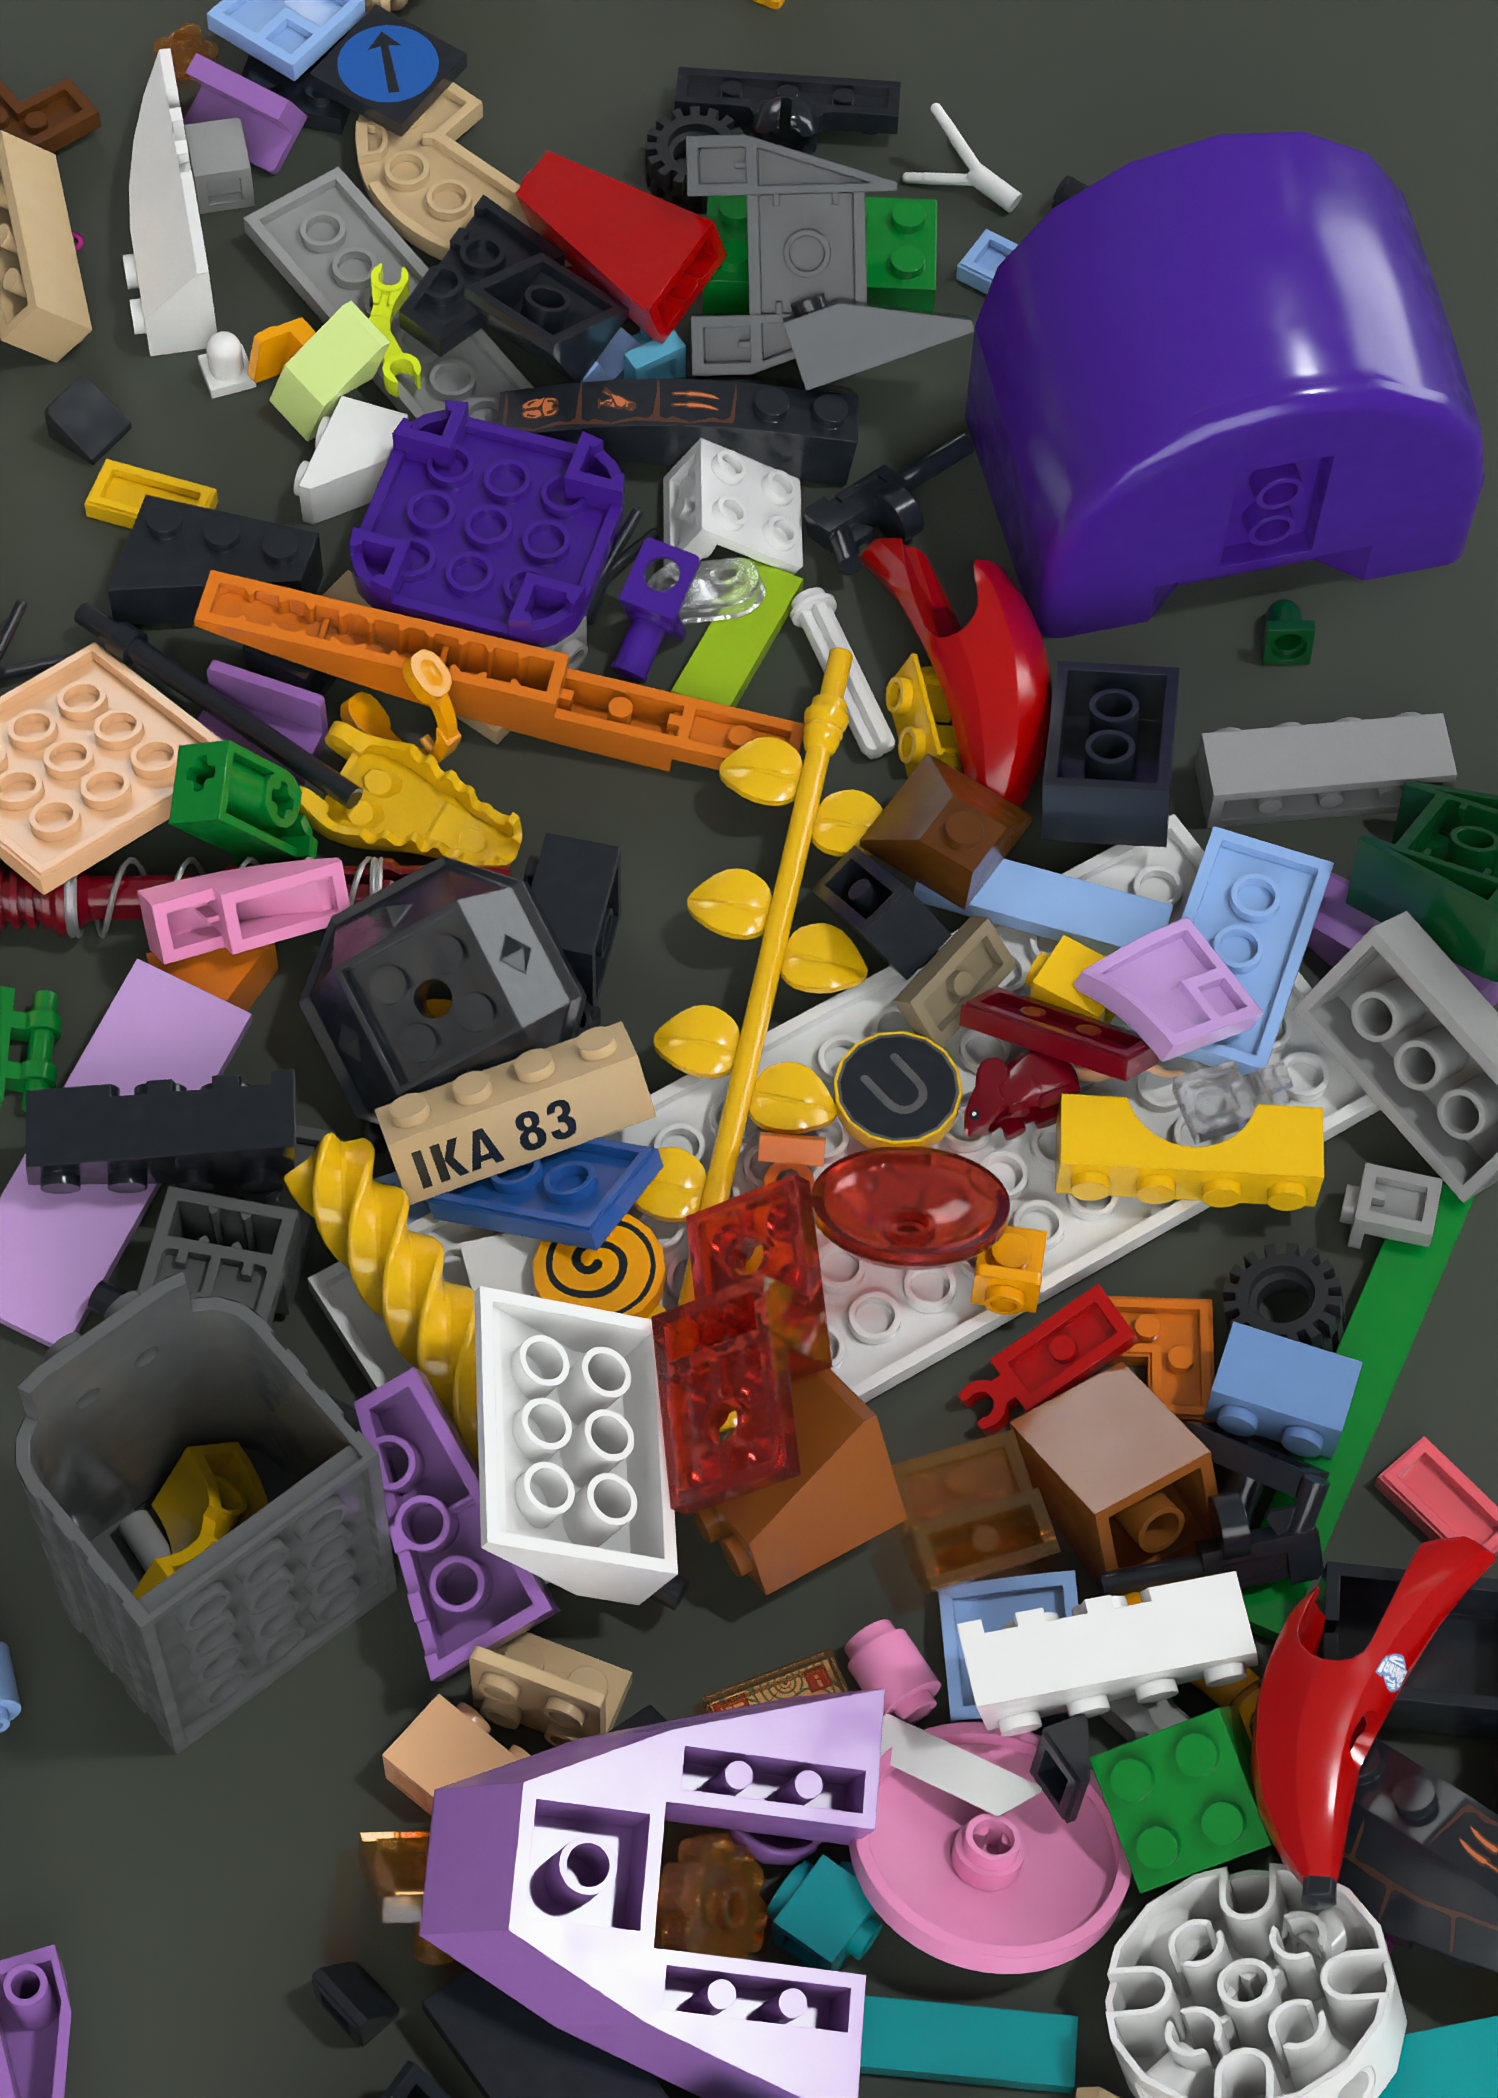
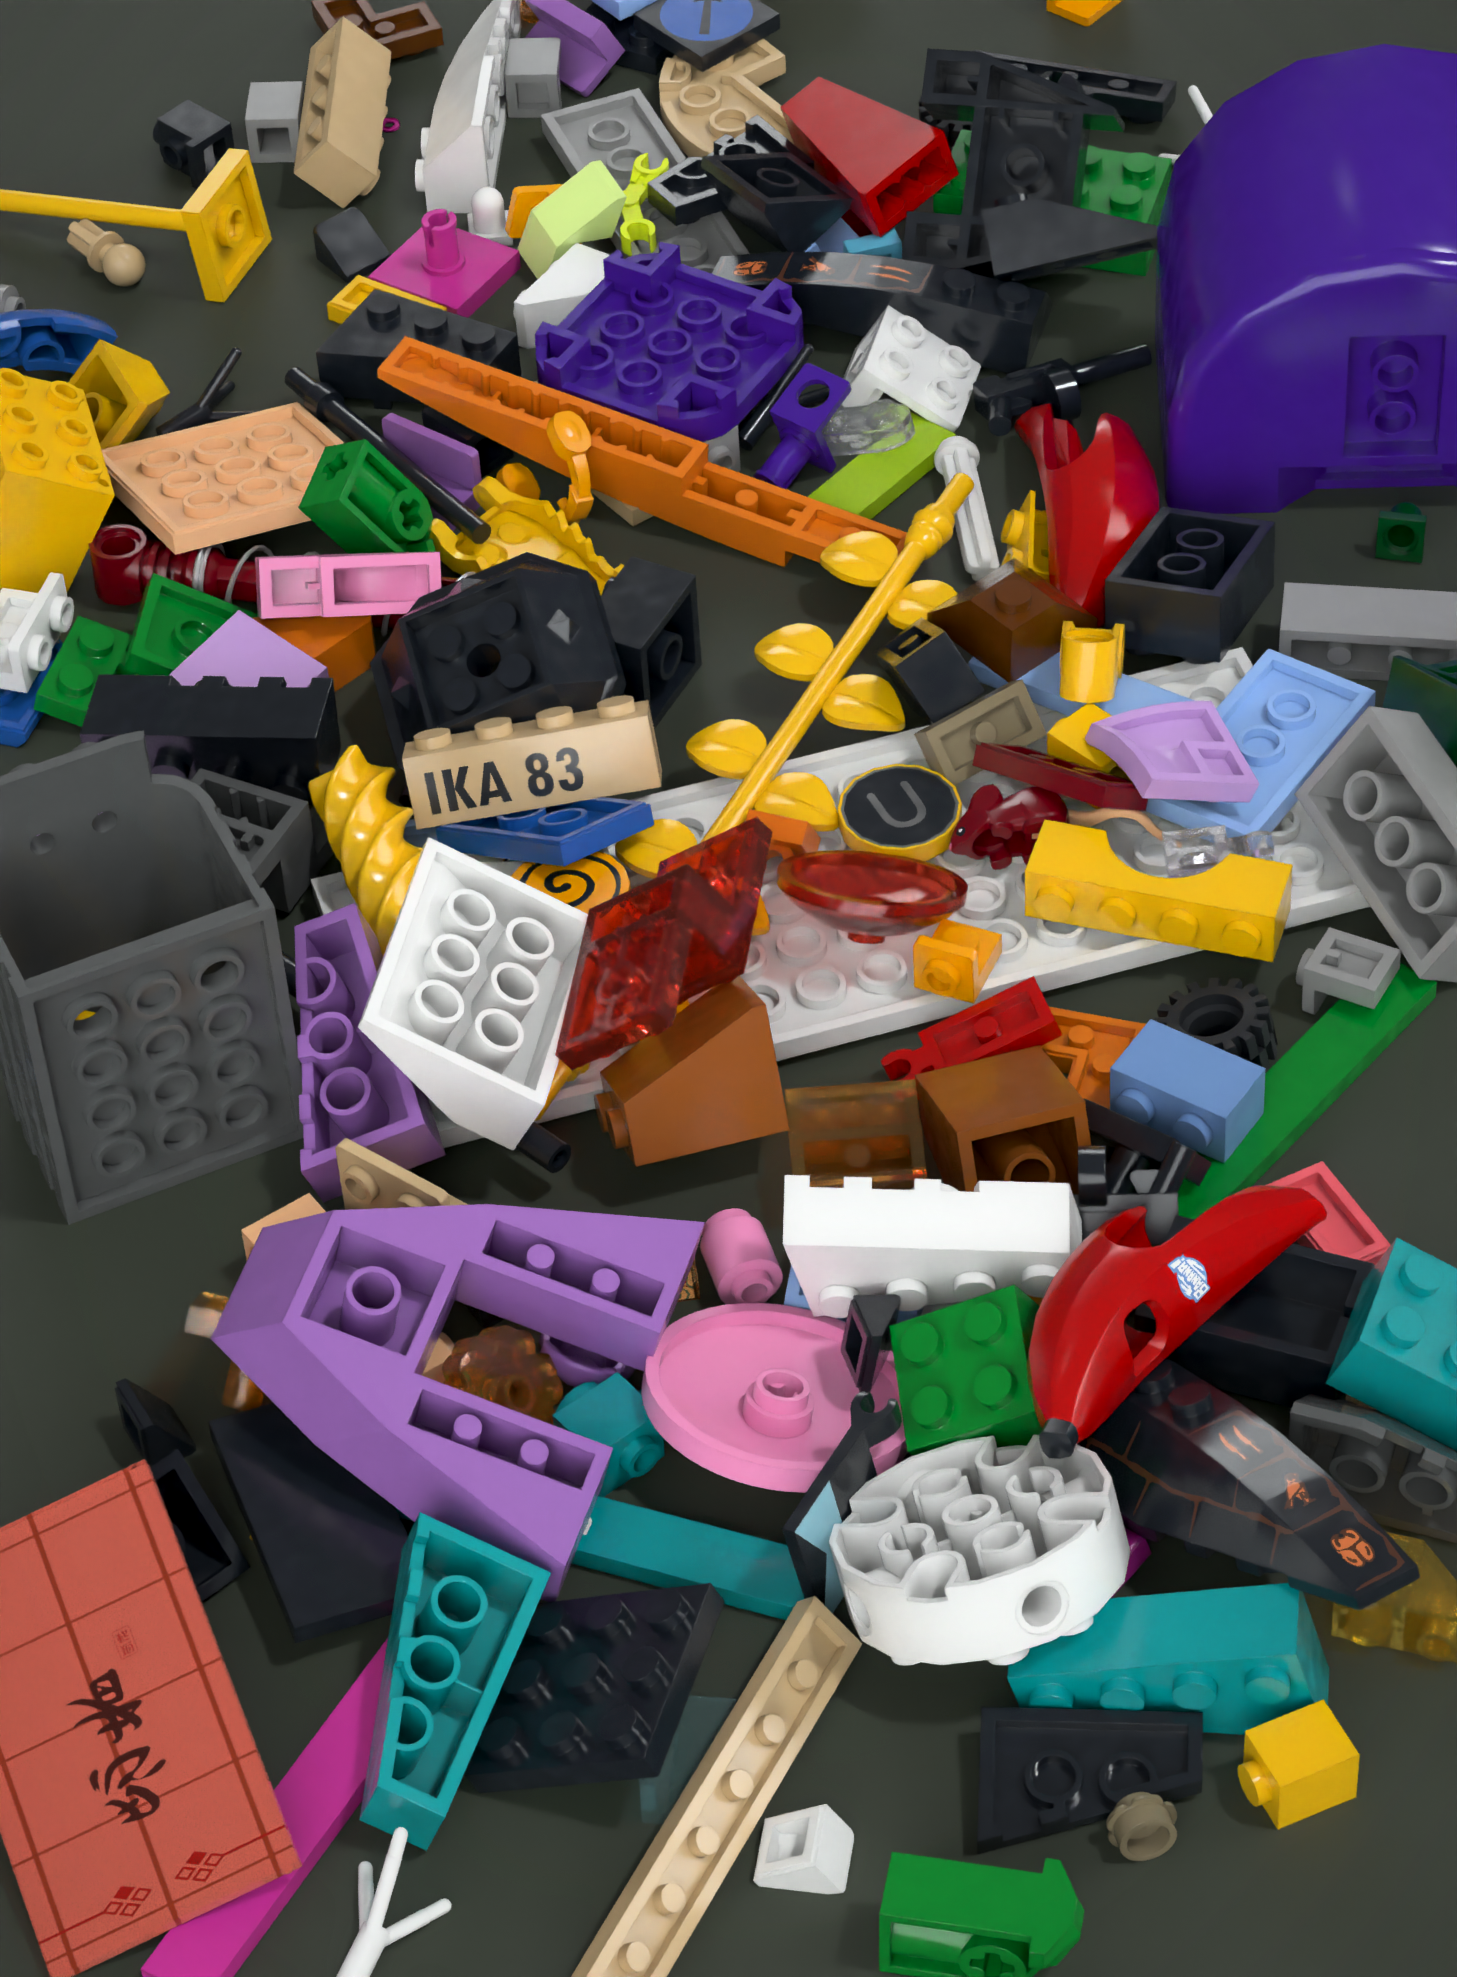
camera: 20 degrees right, 15 degrees down
(71, 980) = (173, 625): none -> green plate
(199, 434) = (448, 265): none -> dark pink tile
(953, 1768) = (764, 1330): white sticker -> none
(1049, 884) = (1090, 662): none -> yellow piece
(1089, 2024) = (828, 1498): none -> black flag

